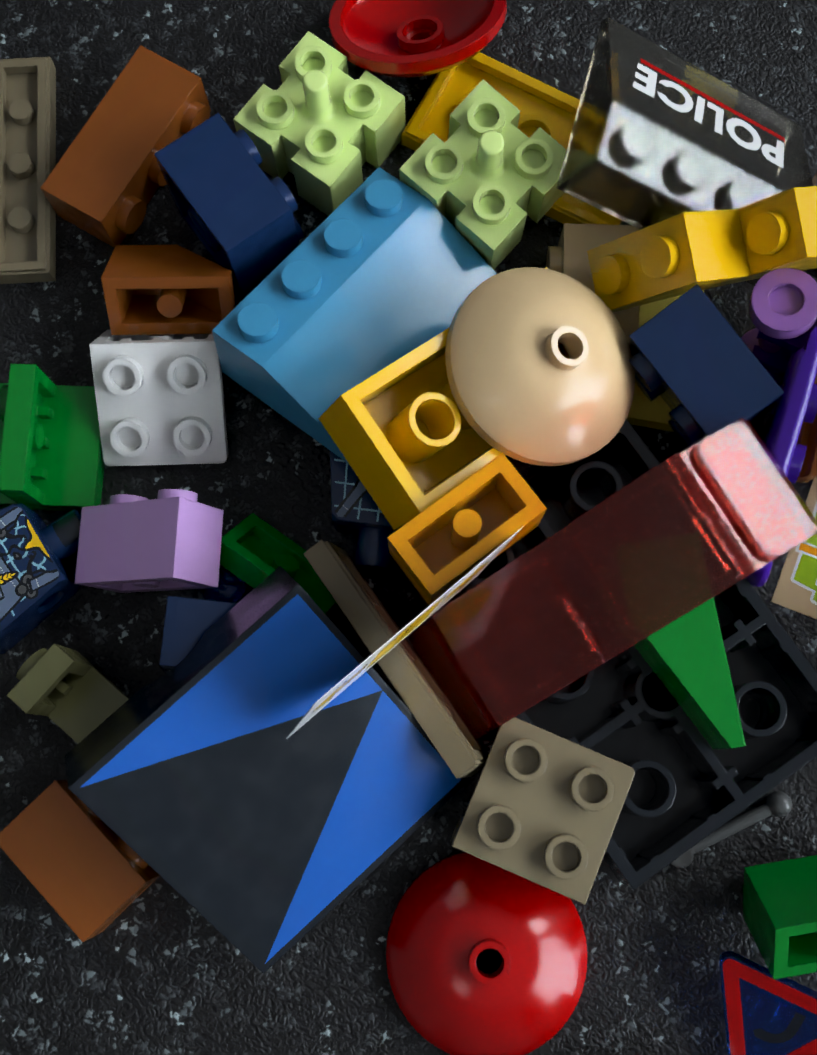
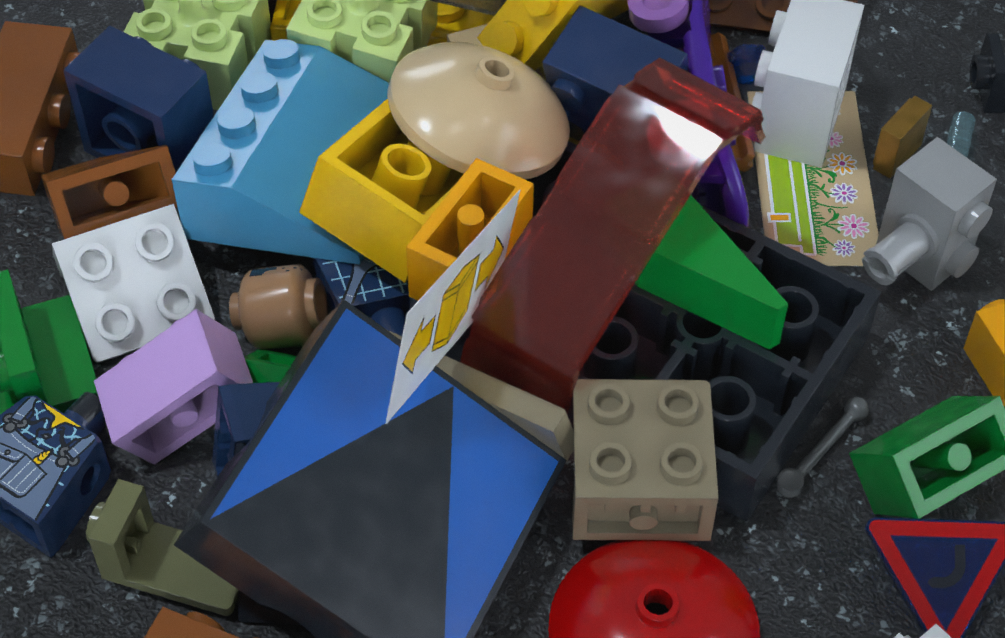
camera: 25 degrees left, 25 degrees down
(282, 482) = (278, 306): none -> medium nougat head

